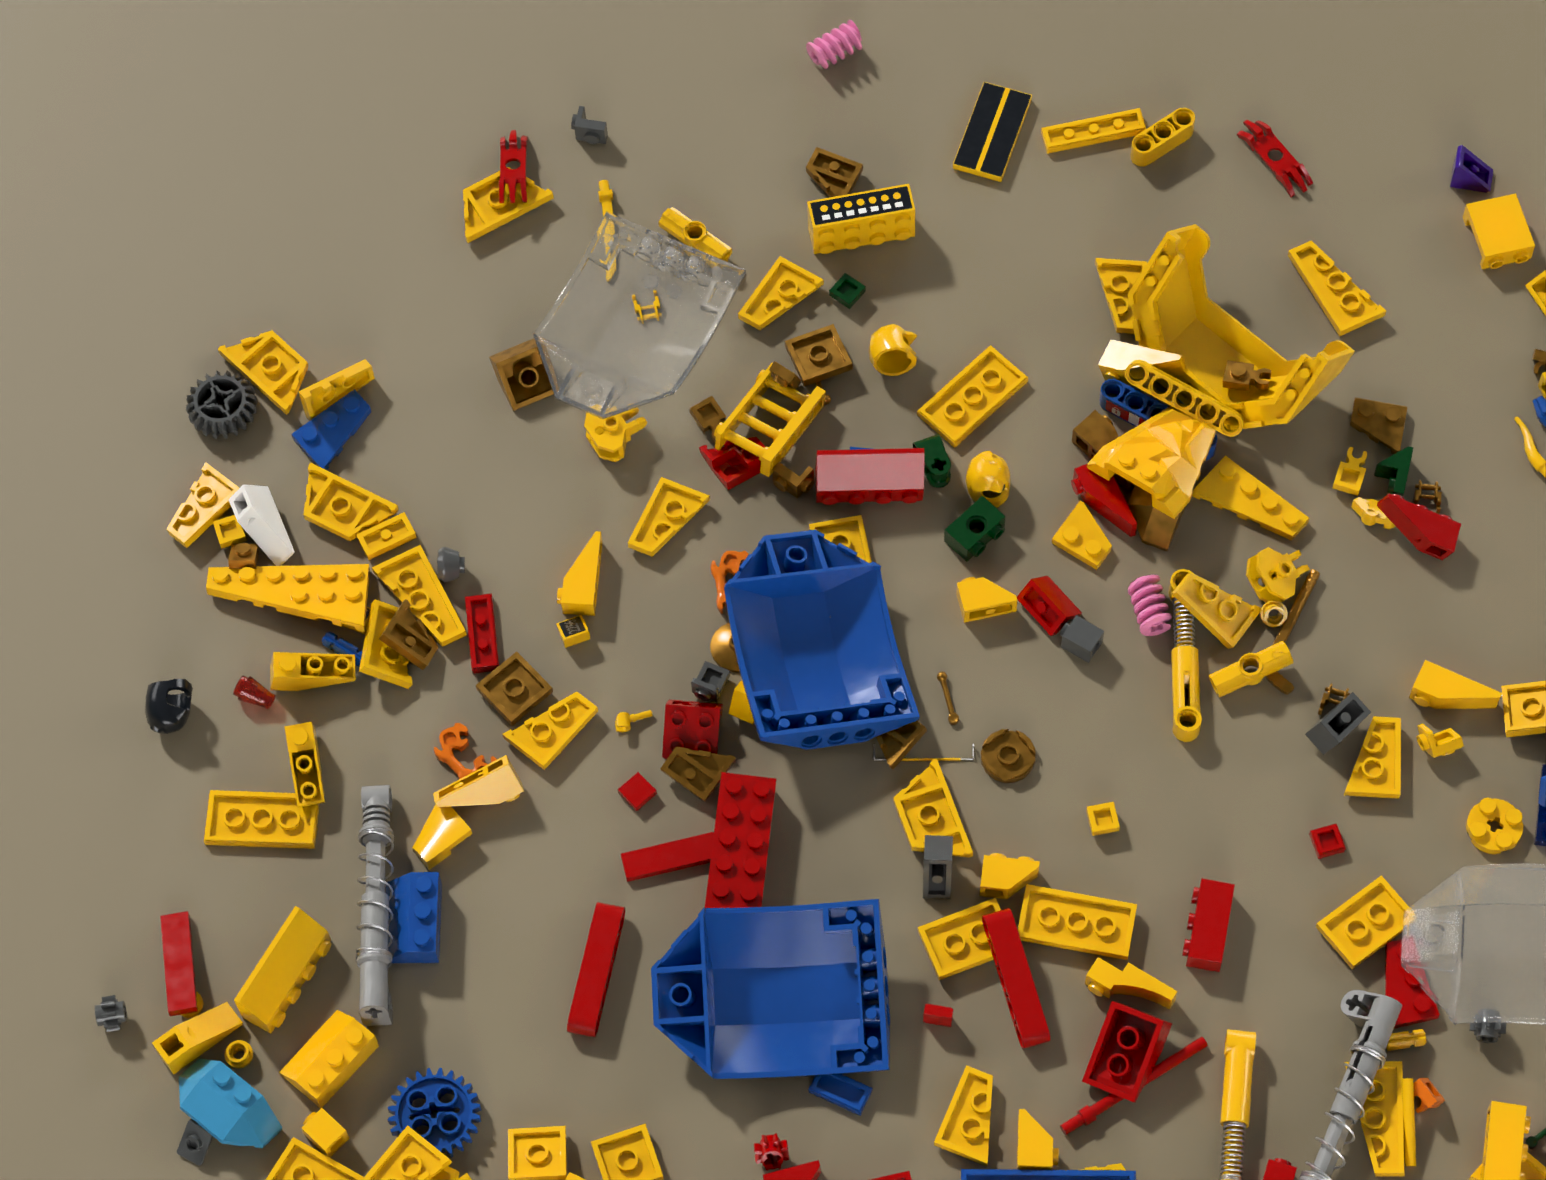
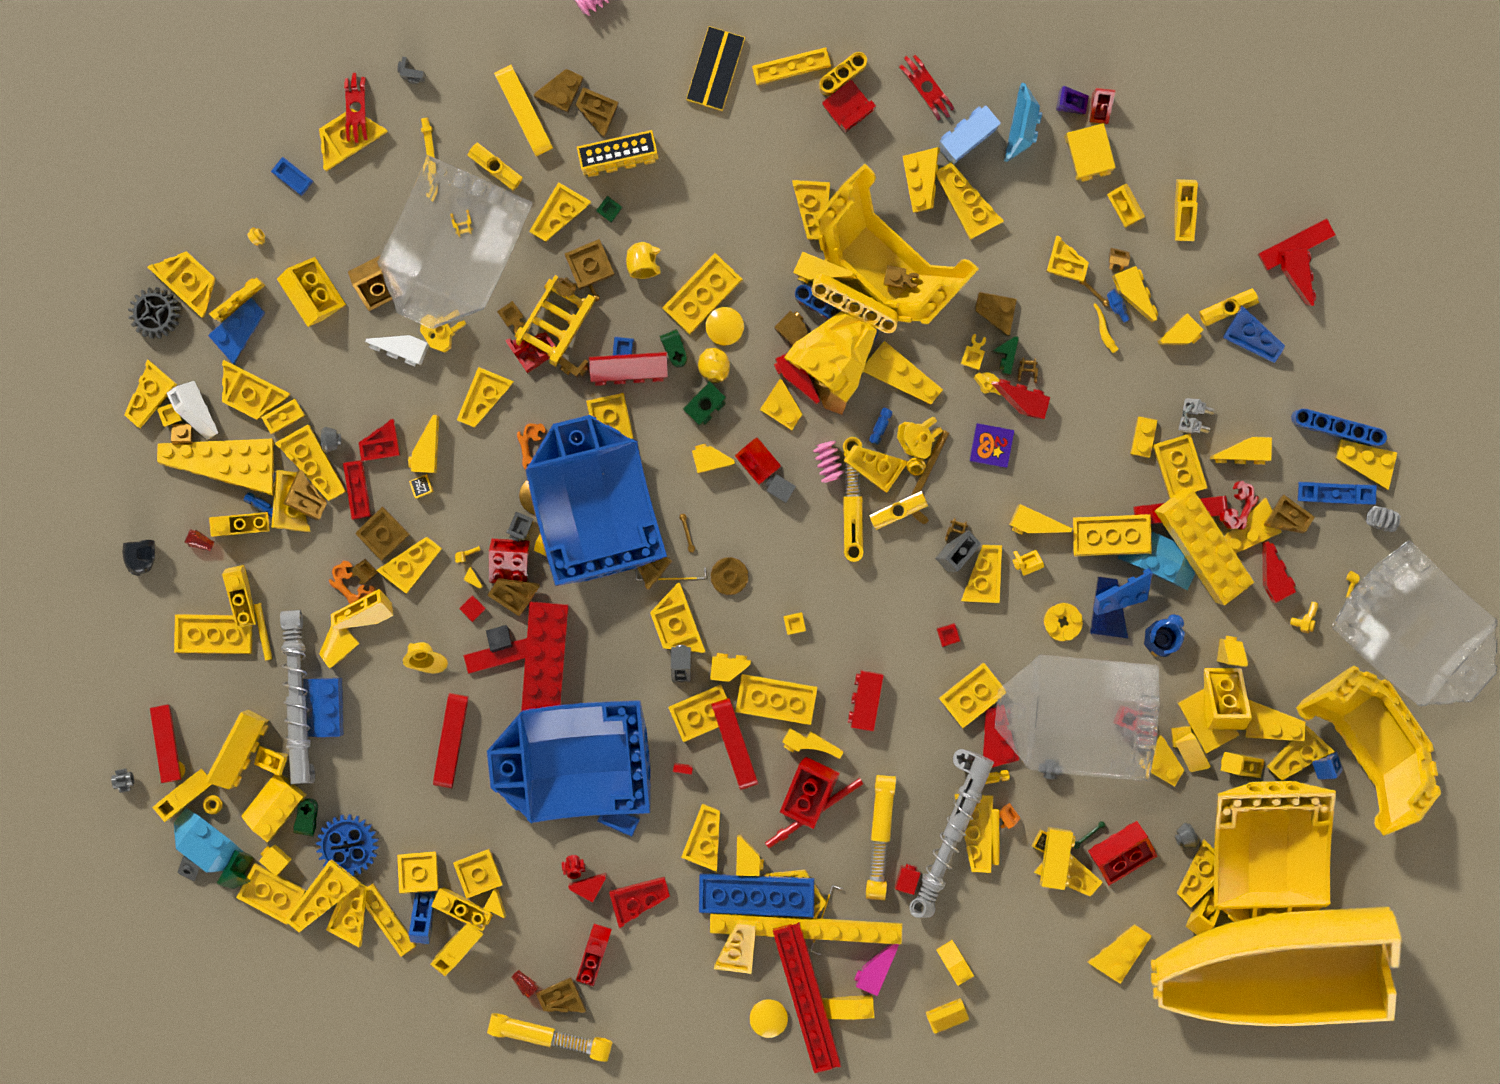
camera: 10 degrees left, 25 degrees up
(263, 1147) = (234, 872): none -> dark green slope
(332, 989) = (271, 760): none -> yellow slope
(333, 817) = (262, 631): none -> yellow bar
(368, 315) = (256, 236): none -> yellow plate
(375, 1078) = (306, 821): none -> dark green piece
(422, 248) = (292, 176): none -> blue tile
(436, 382) = (311, 291): none -> yellow slope
(486, 736) = (364, 571): none -> pearl gold tile
(519, 573) = (381, 443): none -> red wing
(560, 451) = (404, 346): none -> white slope
(565, 855) = (422, 658): none -> yellow piece
(639, 749) = (473, 578): none -> yellow slope
(673, 831) = (499, 638): none -> black piece
(736, 174) = (523, 110): none -> yellow beam
(786, 153) = (561, 90): none -> pearl gold wing
(1003, 434) = (724, 326): none -> yellow dish
(1172, 175) = (848, 106): none -> red bracket
(1223, 562) = (880, 426): none -> blue axle
(1270, 258) = (921, 176): none -> yellow wing
(1334, 204) = (968, 134): none -> light blue brick
(1380, 591) = (991, 445): none -> dark purple tile
(1407, 197) = (1023, 123): none -> dark azure wedge
(1475, 363) = (1066, 262): none -> yellow wing
(1476, 1134) = (1040, 840): none -> slope
(1497, 389) = (1105, 302): none -> pearl gold hinge
(1512, 173) = (1101, 105): none -> red slope

